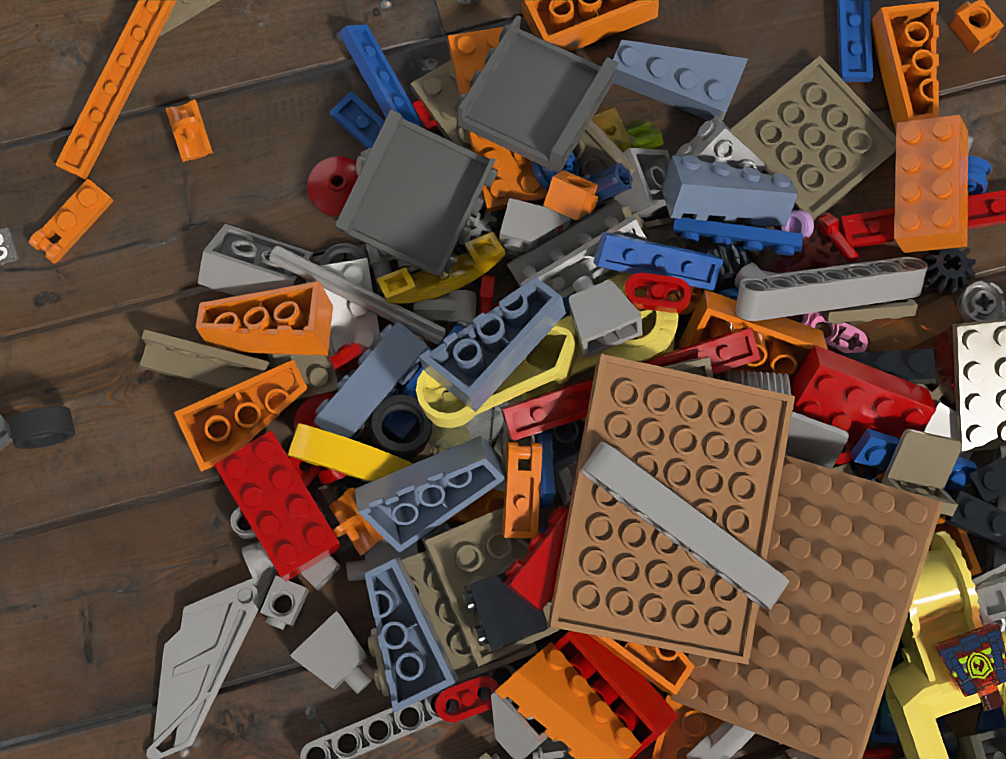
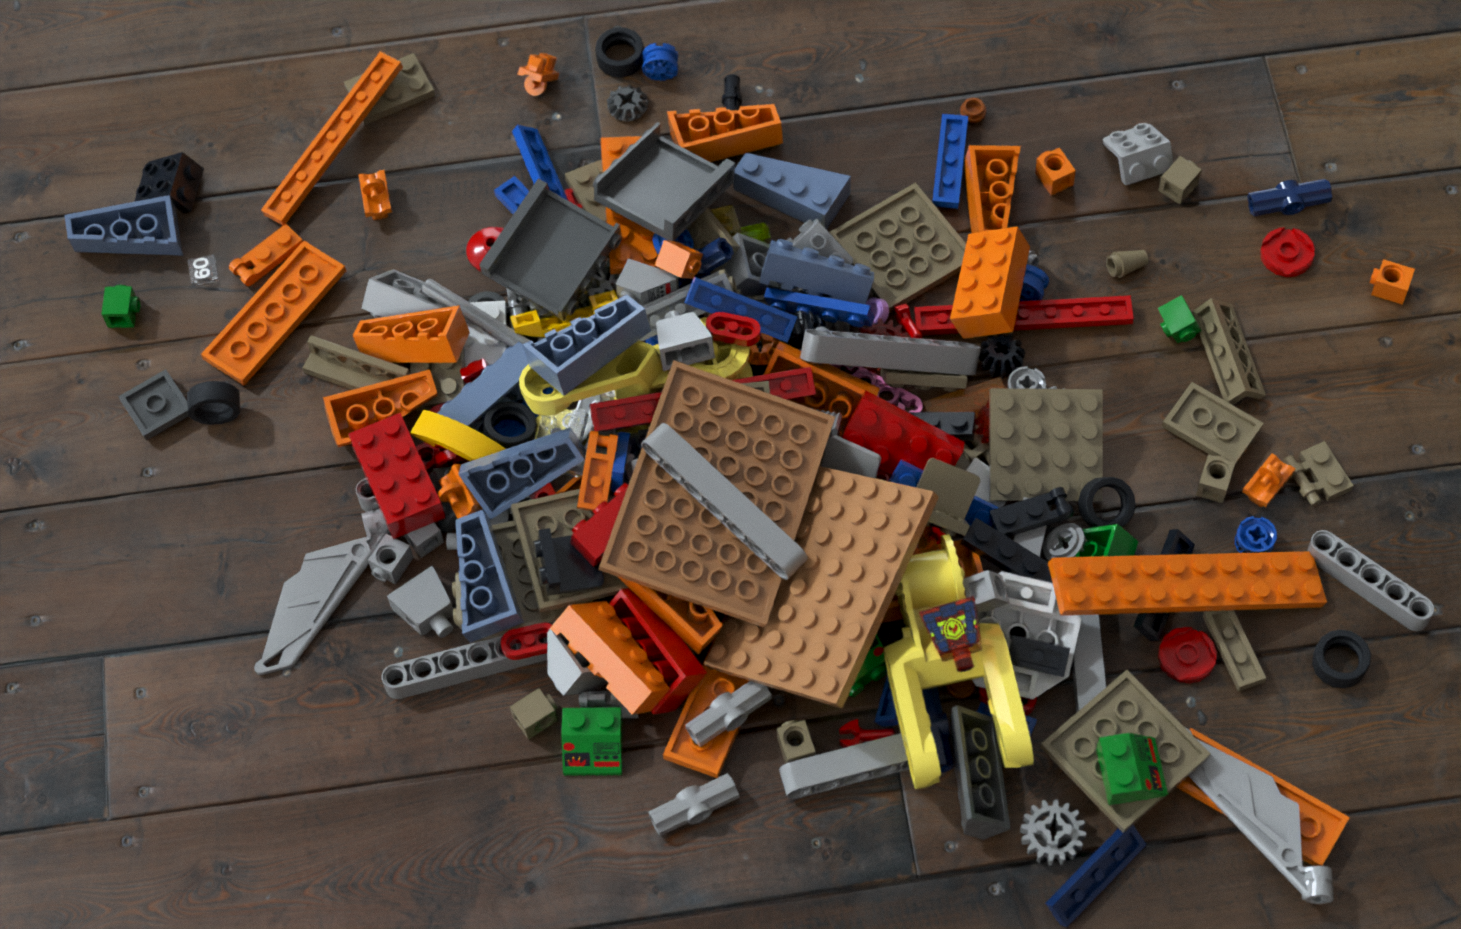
camera: 15 degrees right, 15 degrees down
(93, 297) = (273, 313): none -> orange plate

